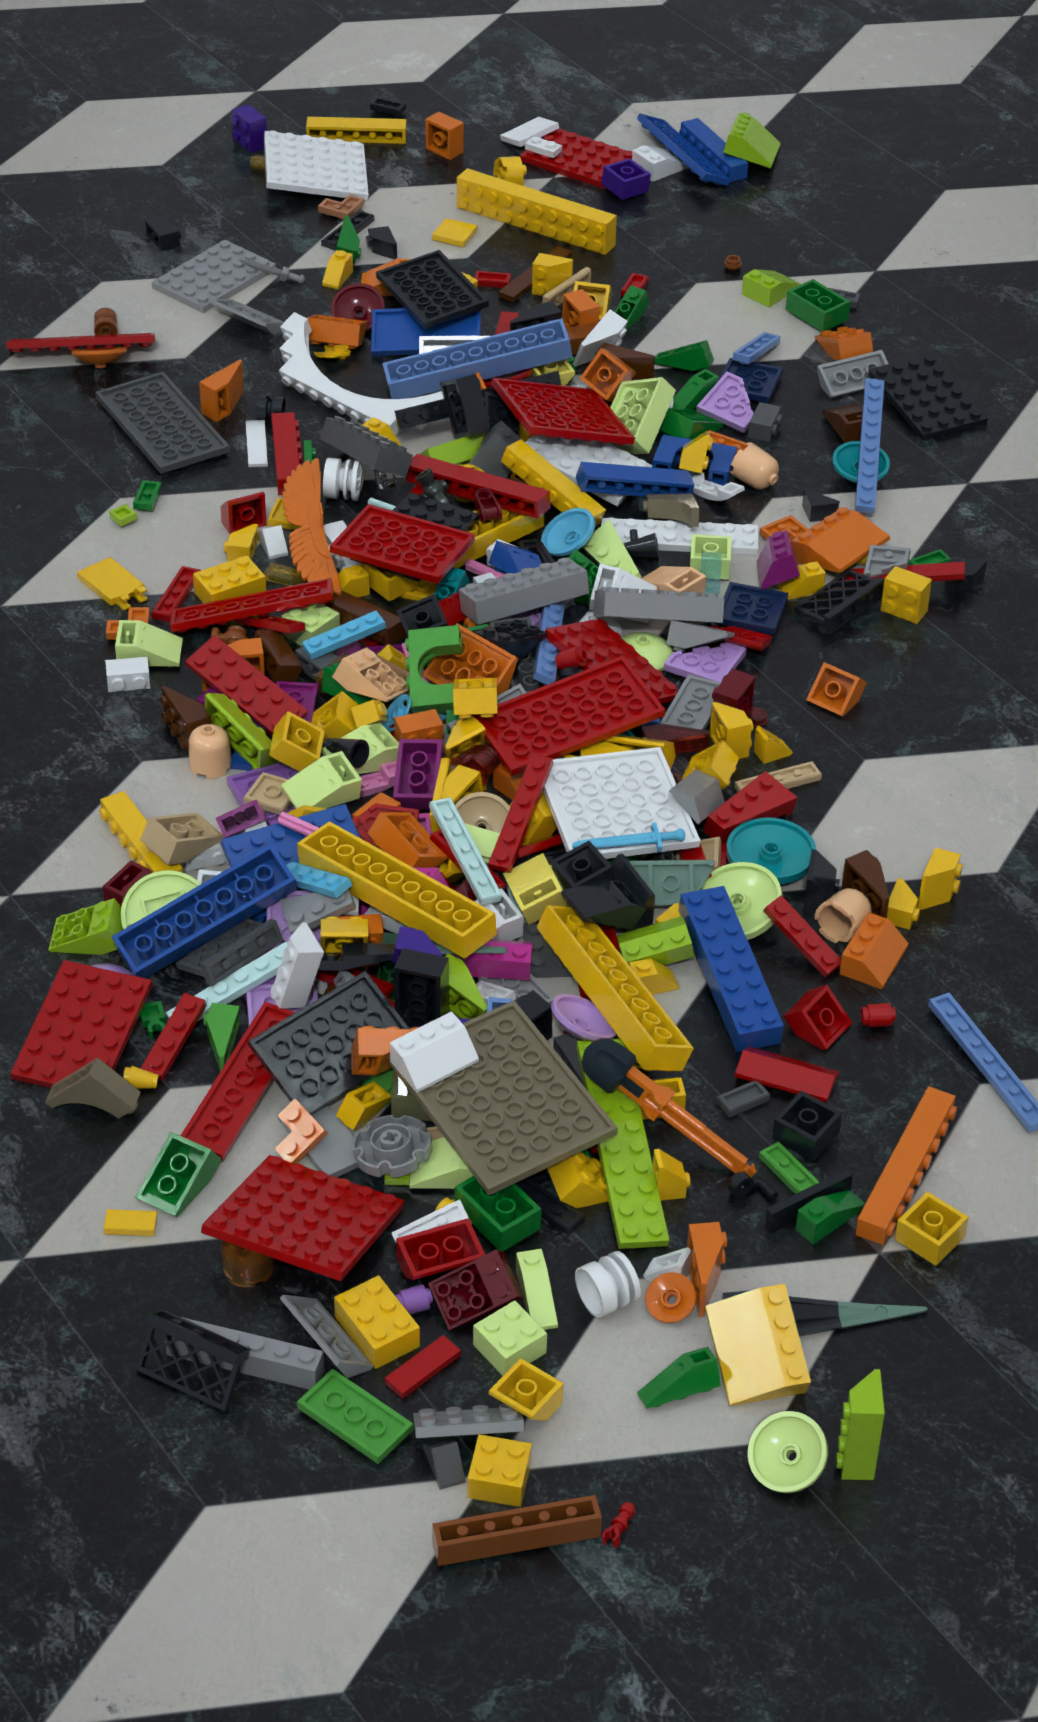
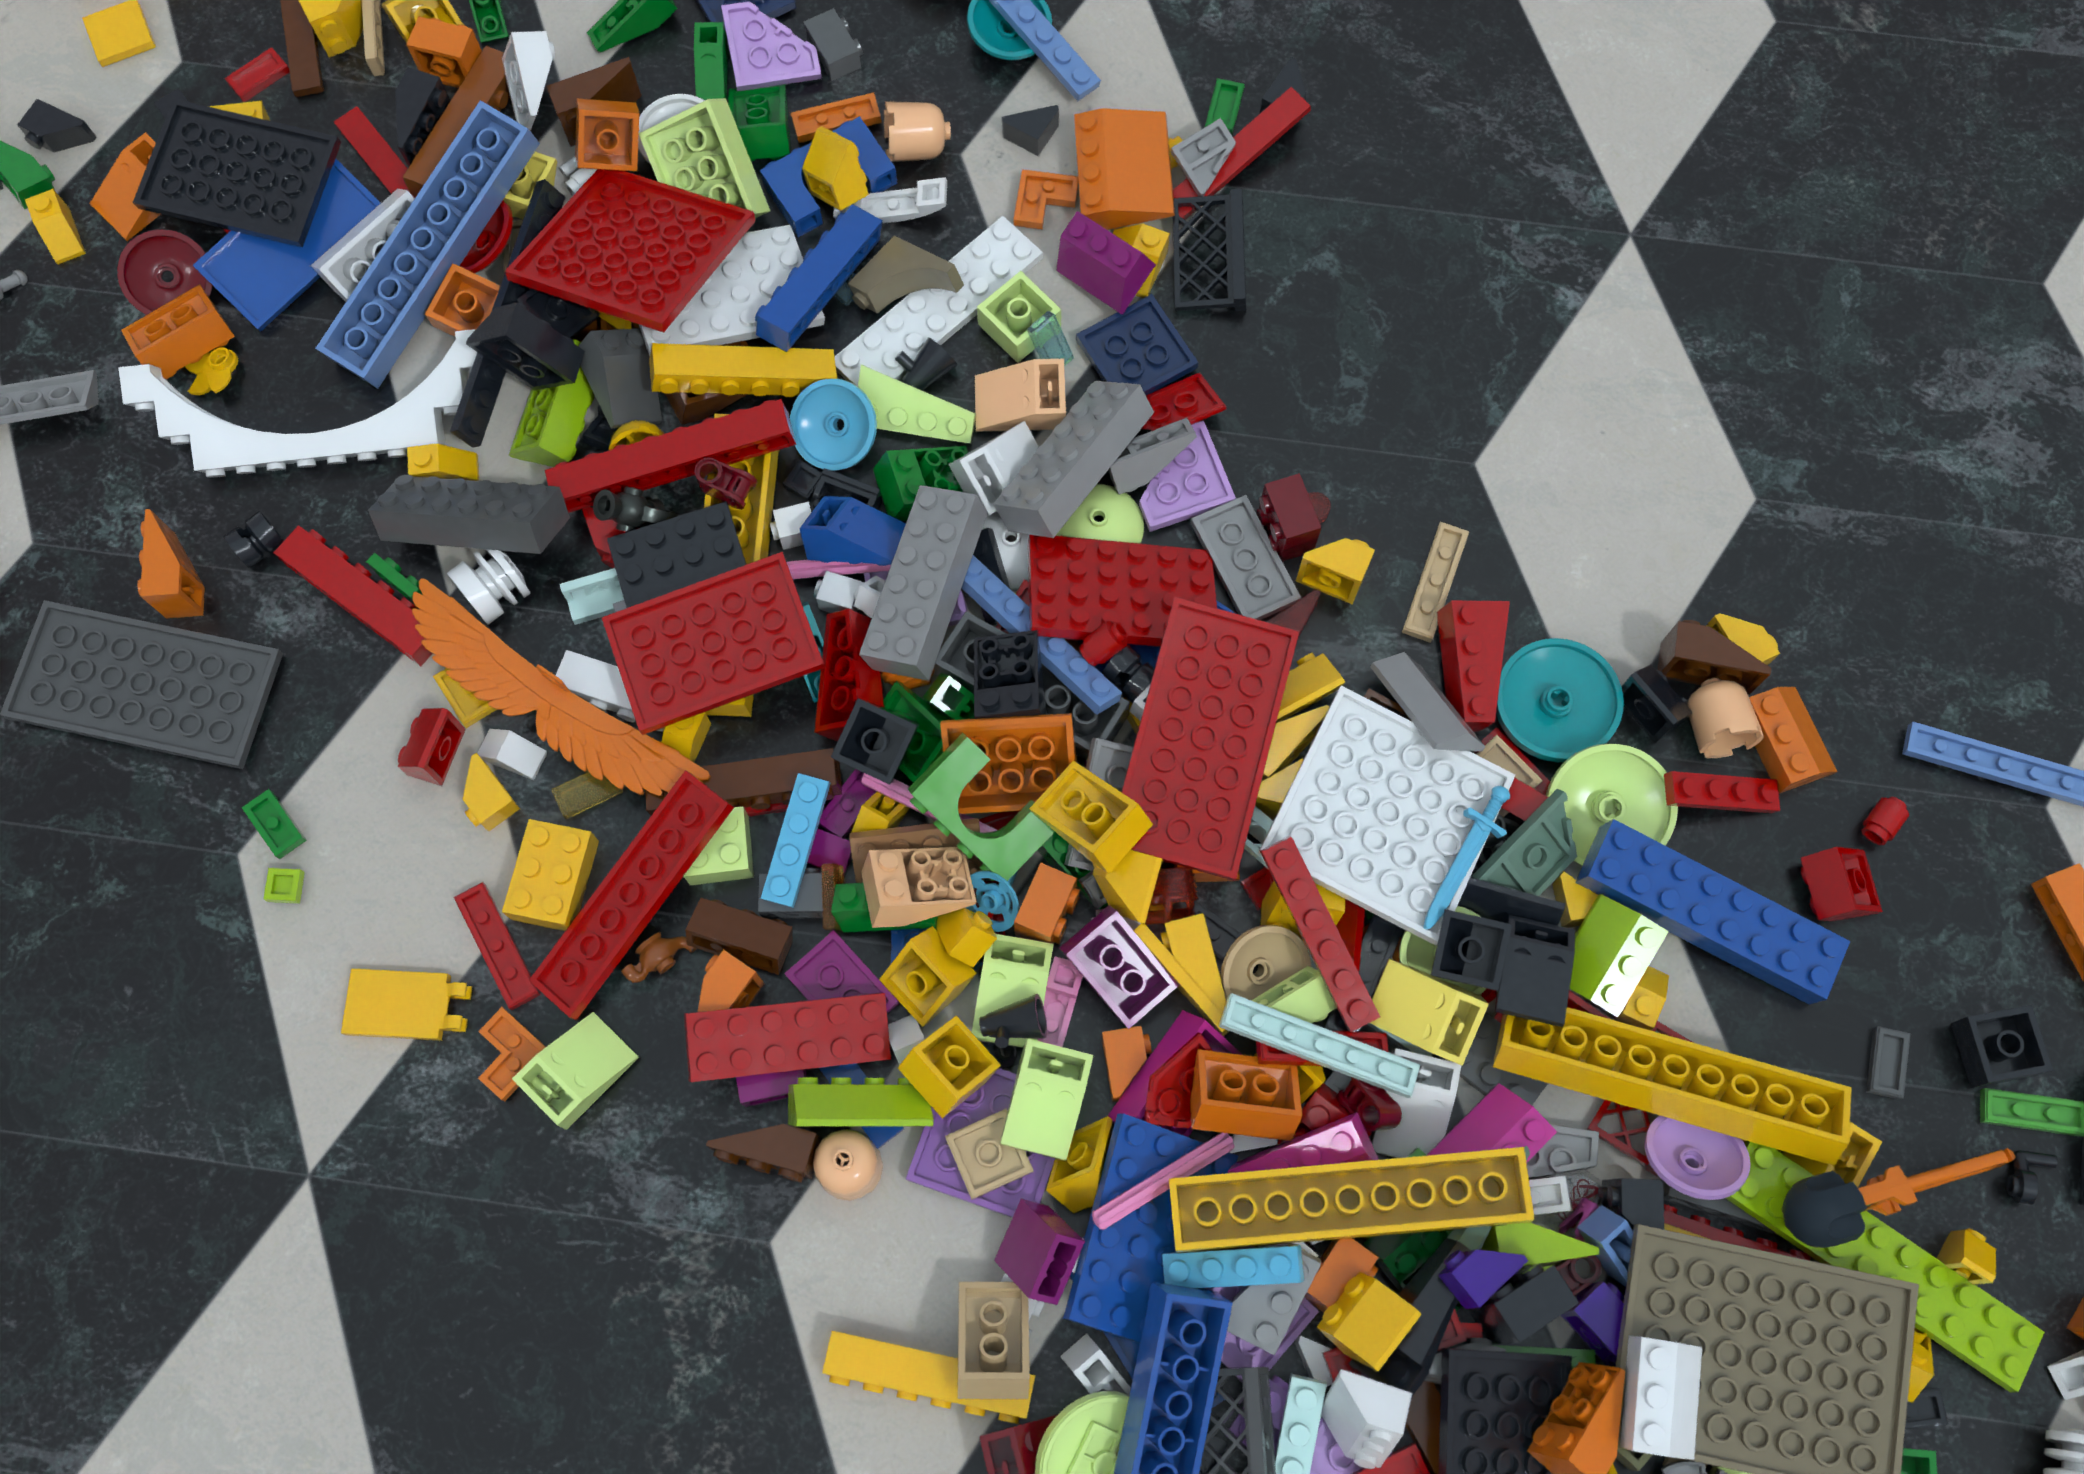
camera: 45 degrees left, 30 degrees up
(127, 674) = (604, 1137): white brick -> none
(256, 443) = (296, 606): white slope -> none
(274, 623) = (701, 892): red tile -> none
(715, 761) = (1362, 636): yellow slope -> none
(769, 747) = (1386, 540): yellow slope -> none
(786, 1073) = (1894, 986): red slope -> none
(836, 689) = (1354, 394): orange slope -> none
(906, 594) = (1277, 188): yellow brick -> none
(940, 878) = (1749, 577): yellow slope -> none

